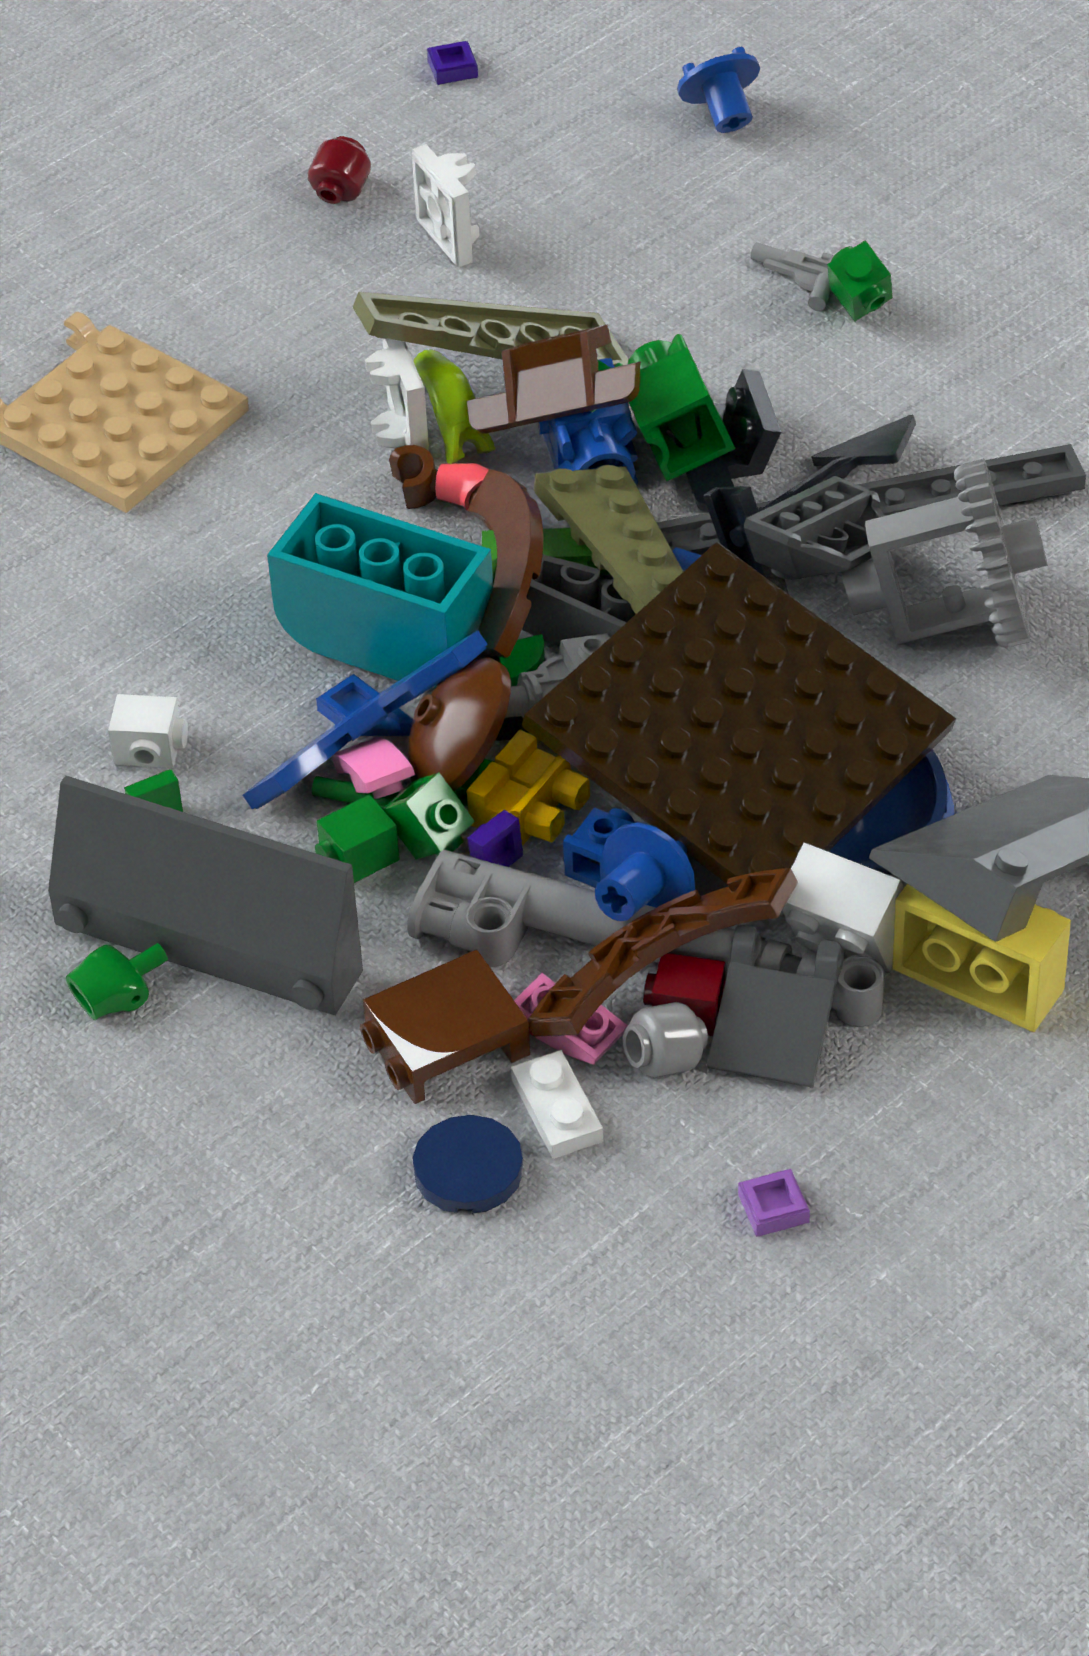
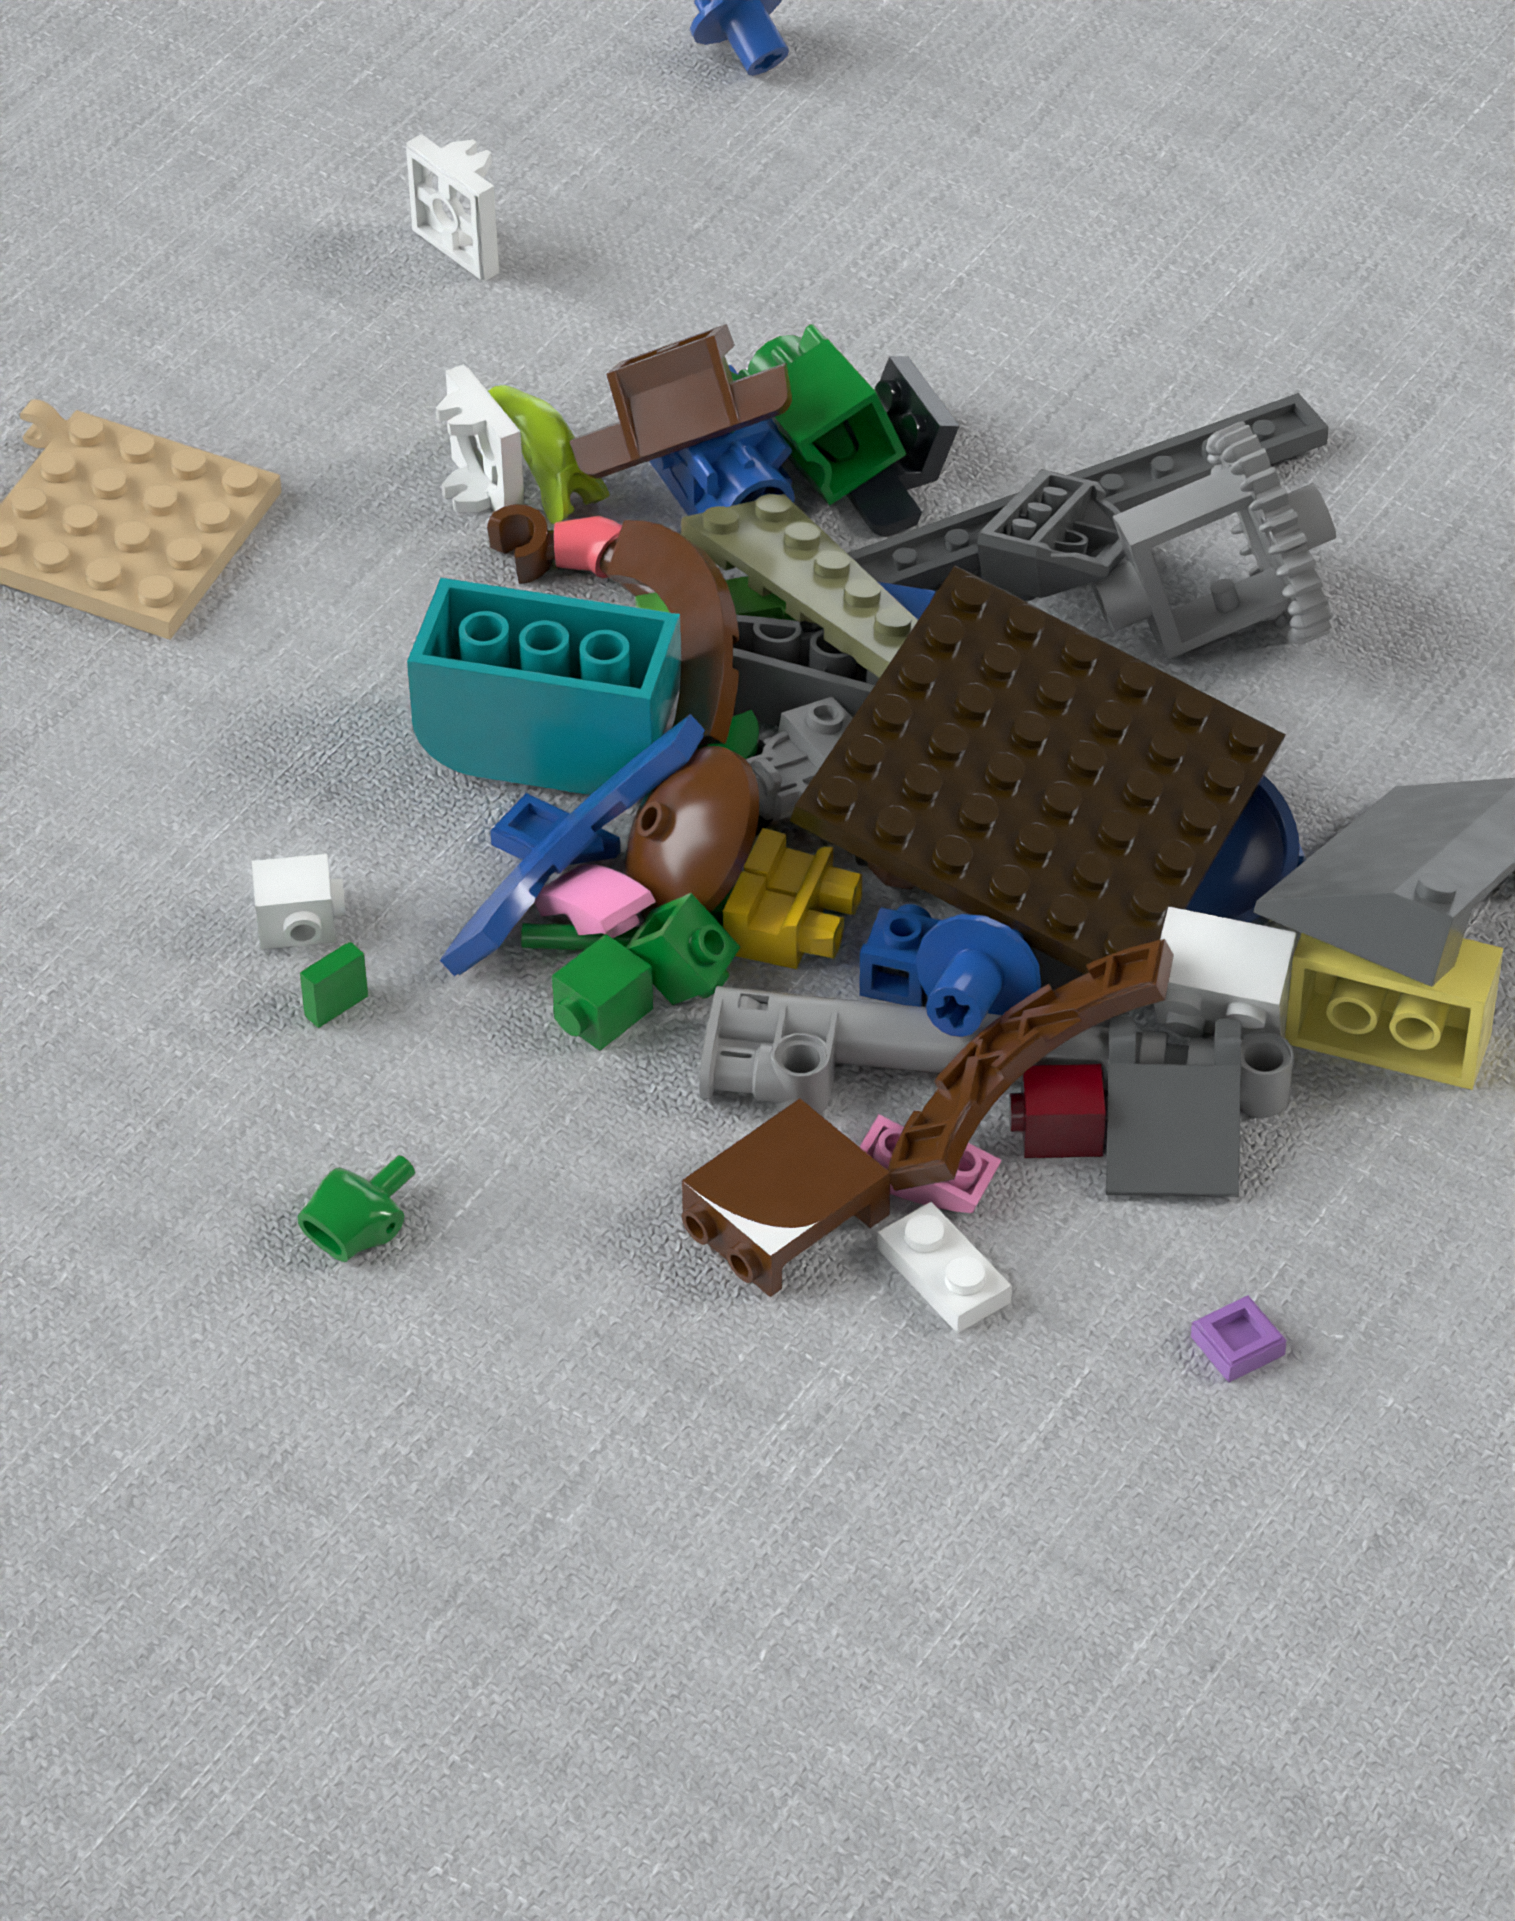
camera: 15 degrees left, 0 degrees up
(205, 895) = (451, 1084): dark grey slope -> none
(339, 170) = (302, 179): dark red head -> none
(452, 62) = (393, 31): dark purple tile -> none
(468, 1164) = (862, 1356): dark blue tile -> none
(472, 326) = (545, 348): olive wing -> none
(497, 840) = (774, 964): dark purple plate -> none
(665, 1040) = (1053, 1169): light grey head -> none
(733, 504) = (943, 526): black piece -> none
(807, 270) = (927, 231): light grey piece -> none
(859, 280) = (988, 231): green brick -> none

